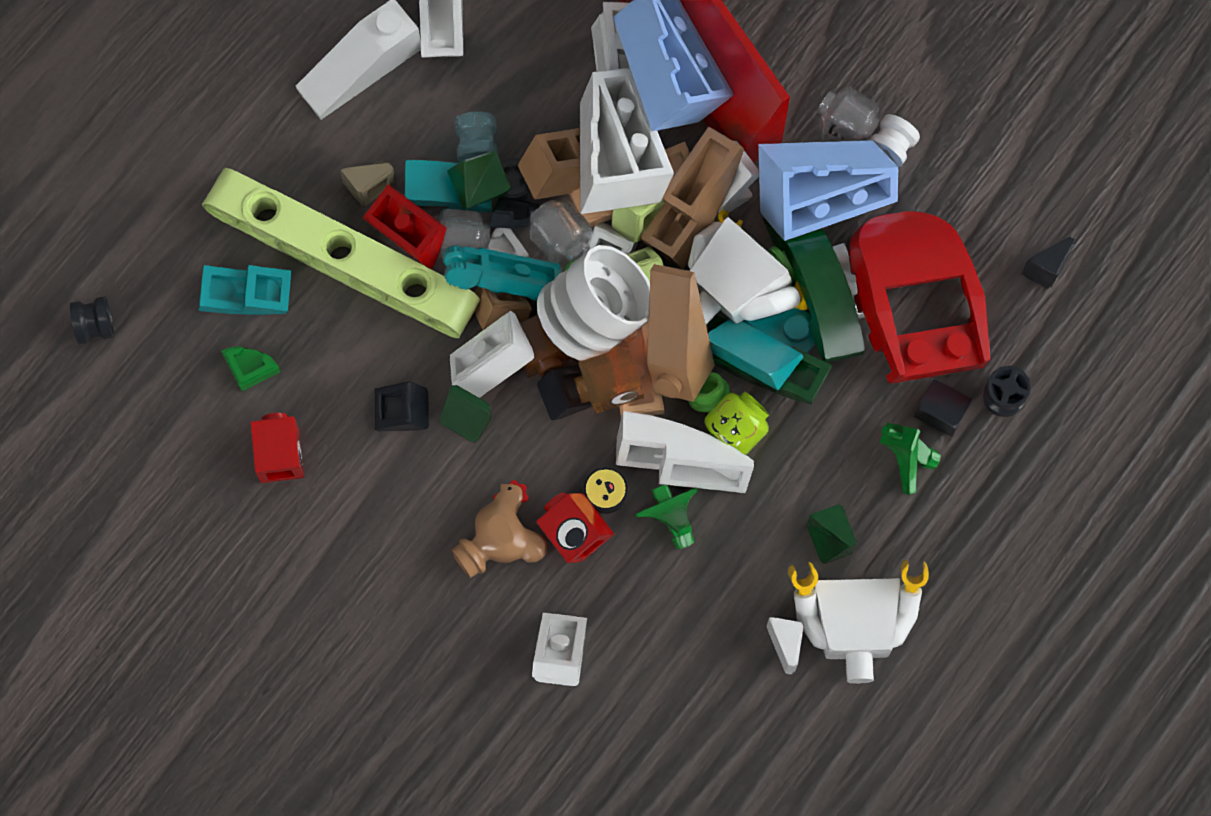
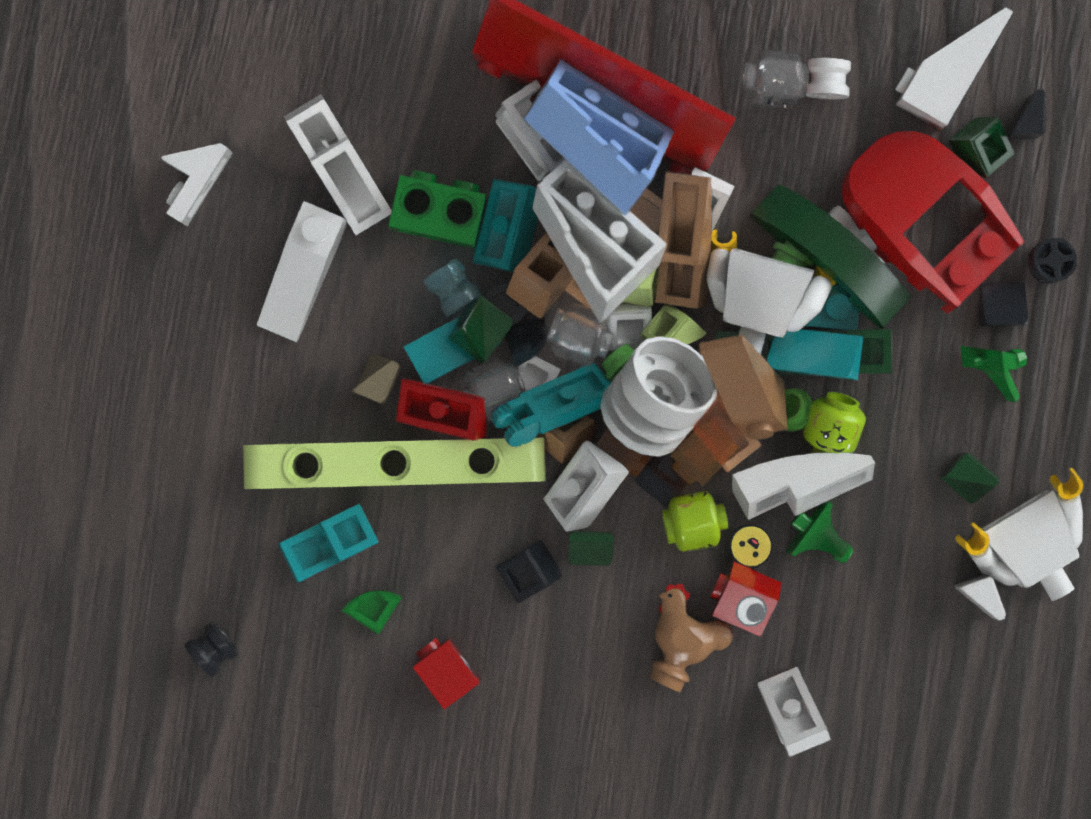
camera: 30 degrees left, 15 degrees up
(493, 78) = (434, 221): none -> green brick
(552, 113) = (506, 226): none -> teal slope
(568, 440) = (694, 521): none -> lime head
(822, 183) = (794, 163): light blue wedge -> none
(998, 265) = (982, 145): none -> dark green slope
(1000, 188) = (943, 78): none -> white slope

